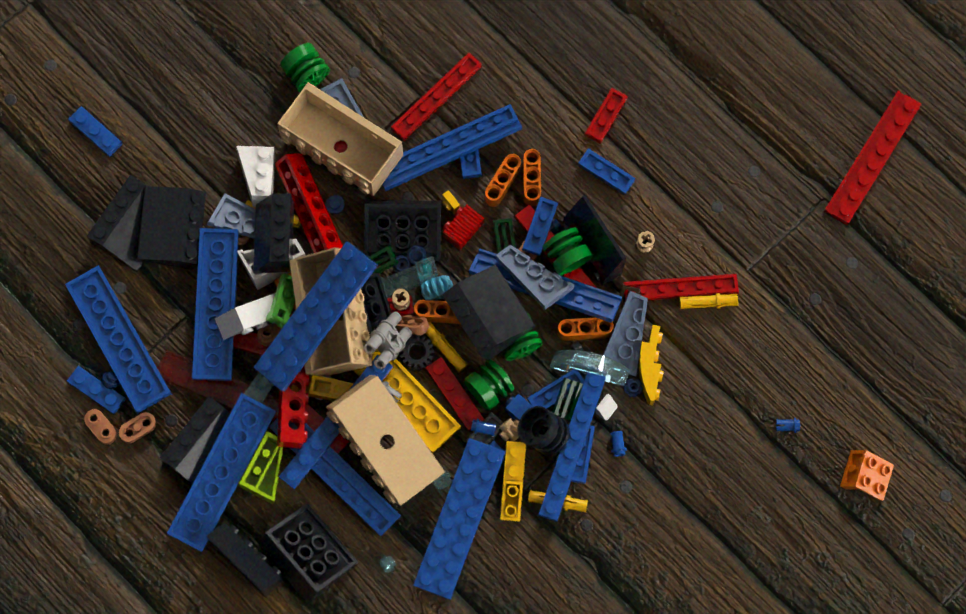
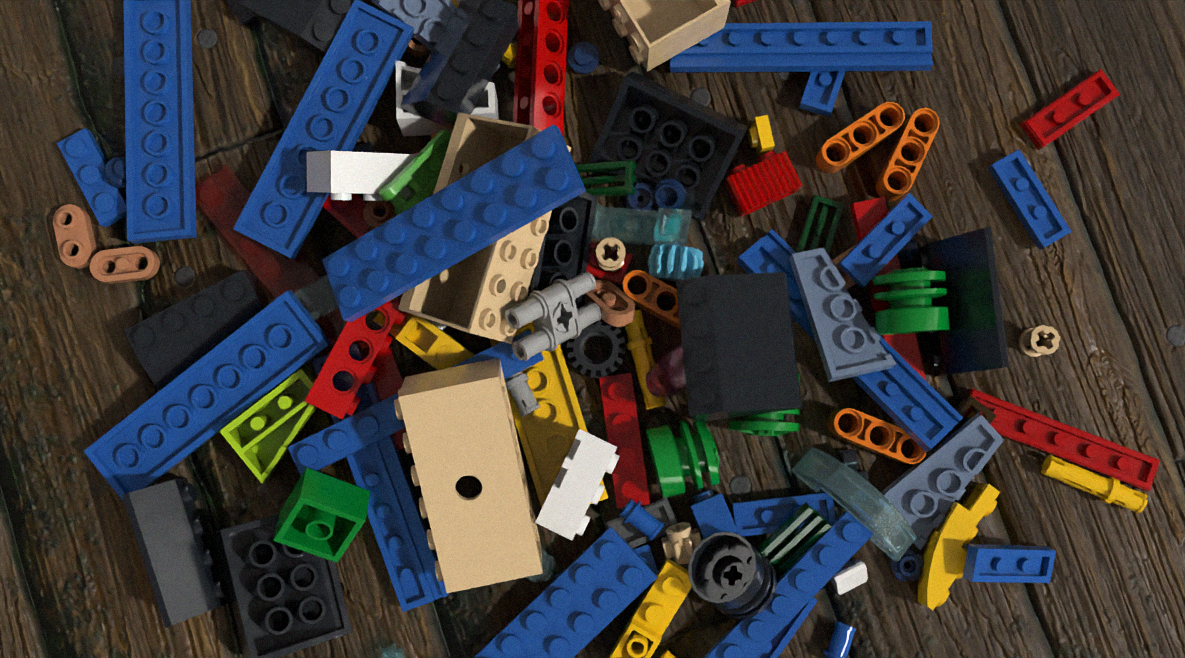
camera: 35 degrees right, 10 degrees up
(315, 501) = (322, 515): none -> green brick
(441, 421) = (577, 485): none -> white wedge
(461, 346) = (669, 372): none -> clear pink plate
(682, 359) = (1009, 563): none -> blue plate

